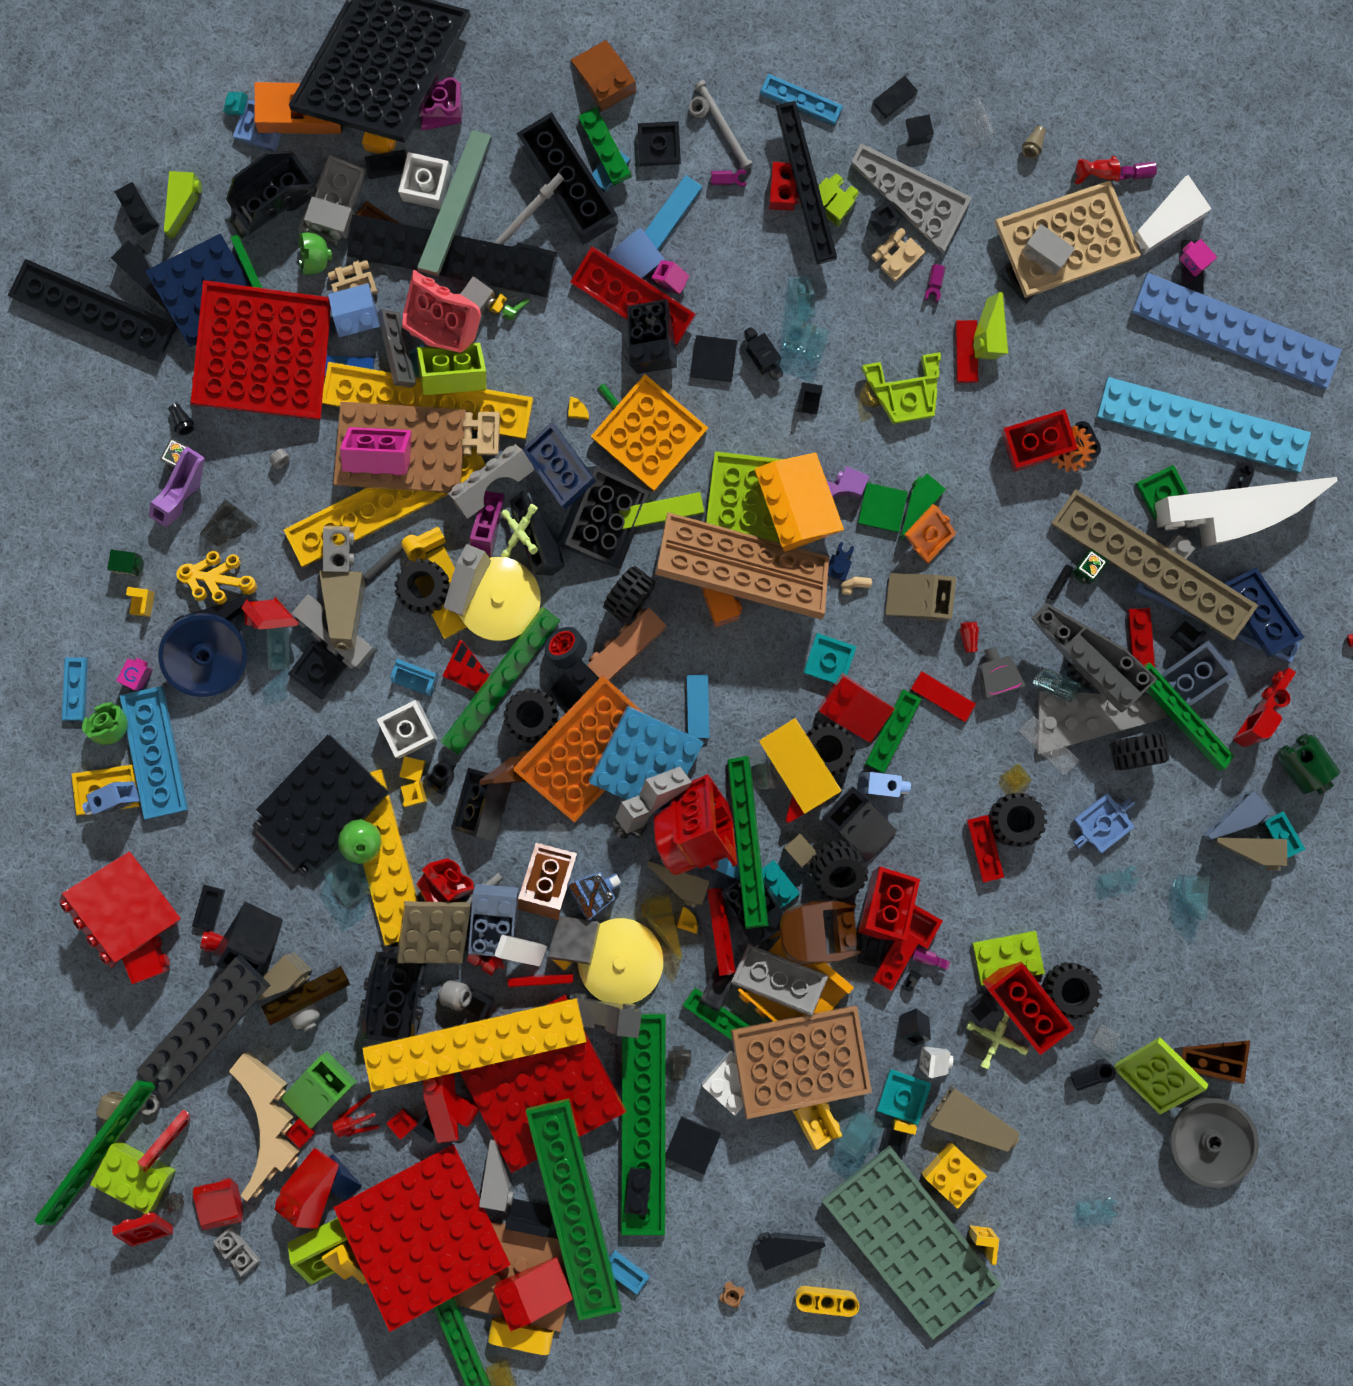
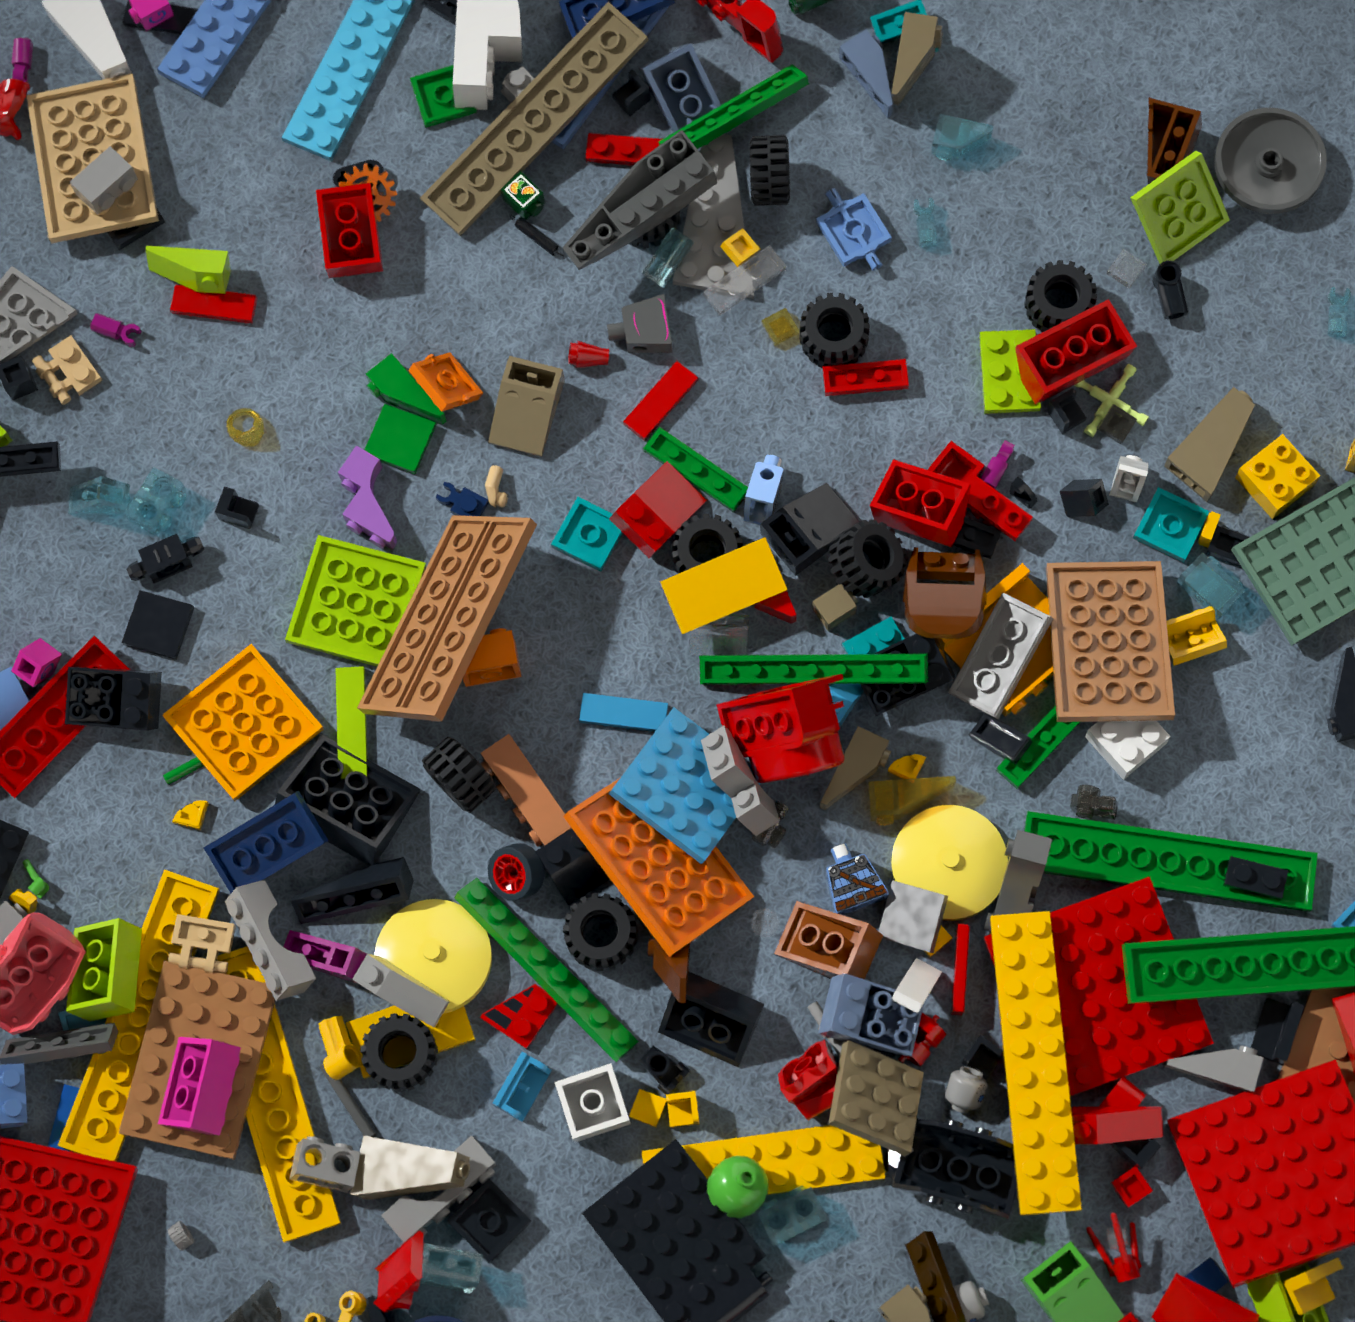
camera: 80 degrees left, 10 degrees down
(519, 533) = (346, 912): yellowish green piece -> none
(692, 1145) = (1203, 802): black tile -> none
(721, 932) = (928, 721): red tile -> none
(799, 500) = (373, 538): light orange slope -> none
(908, 398) = (262, 385): lime wing -> none
(1073, 738) = (740, 247): none -> yellow plate

